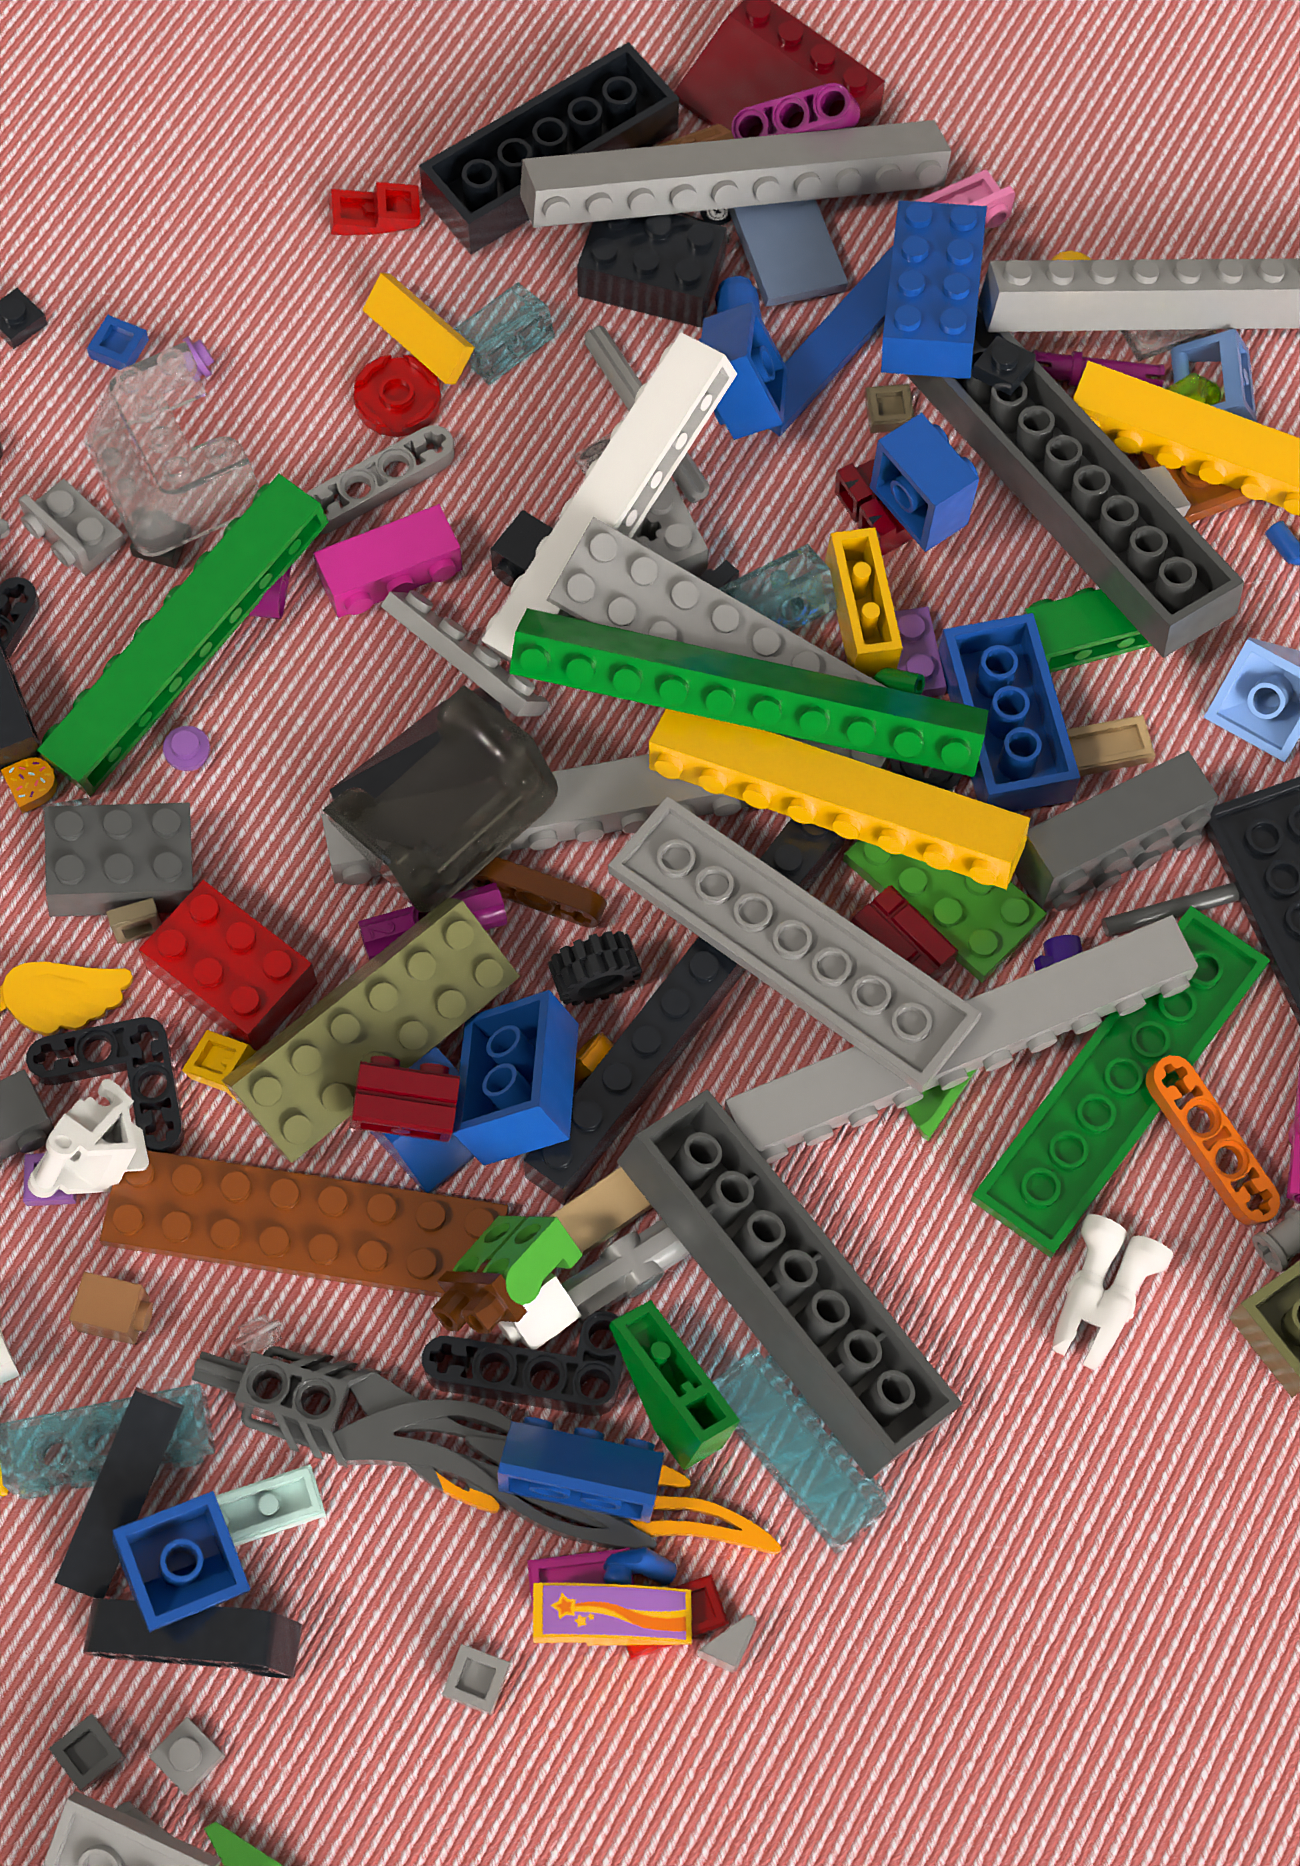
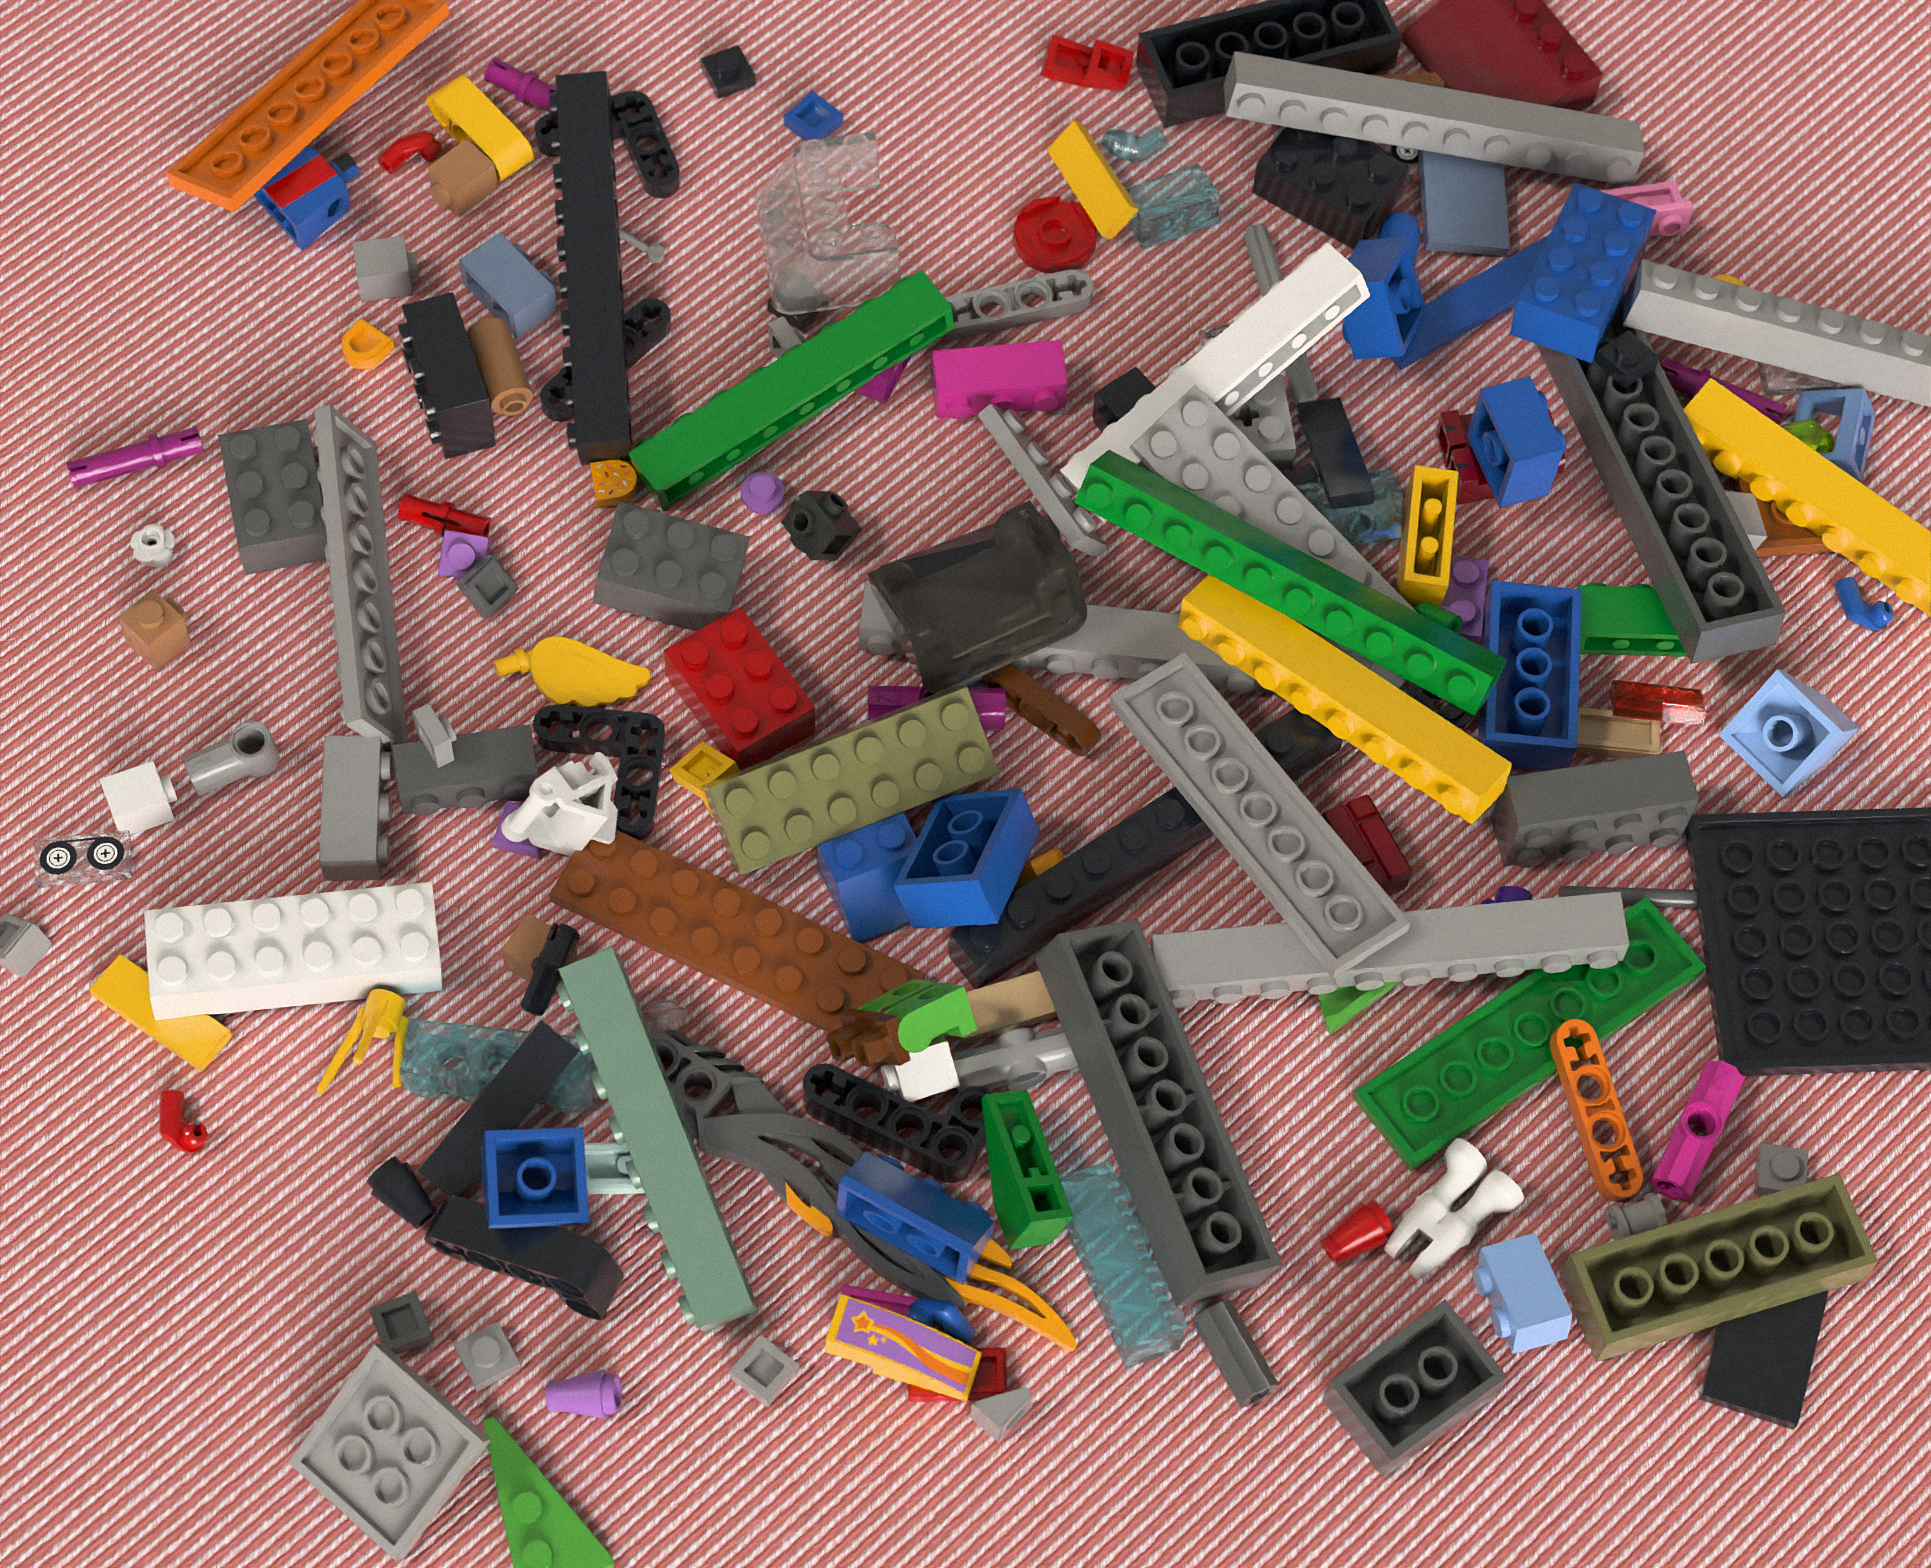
camera: 15 degrees right, 5 degrees down
(44, 1609) = (402, 1192): none -> black cone
(72, 526) = (720, 269): light grey bracket -> none
(125, 1327) = (554, 955): none -> black axle
(134, 920) = (667, 627): dark tan tile -> none
(158, 581) = (783, 336): none -> light grey plate
(201, 355) = (886, 150): medium lavender plate -> none
(257, 766) = (820, 525): none -> pearl dark grey brick
(293, 1475) = (658, 1141): none -> sand green brick
(304, 1765) = (588, 1394): none -> medium lavender cone
(405, 1099) = (859, 845): dark red brick -> none
(445, 283) = (1131, 146): none -> clear light blue arm
(595, 968) = (1070, 788): black tyre -> none
(748, 543) = (1335, 453): none -> black tile
(814, 104) = (1527, 79): magenta beam -> none
(888, 407) = (1511, 365): dark tan tile -> none
(941, 1505) = (1235, 1353): none -> dark grey axle
(974, 917) = (1440, 847): bright green plate -> none
(1022, 1340) = (1358, 1232): none -> red cone
(1130, 1488) = (1414, 1388): none -> dark grey brick
(1136, 703) = (1657, 702): none -> clear red tile
(1202, 1353) = (1522, 1293): none -> light blue brick

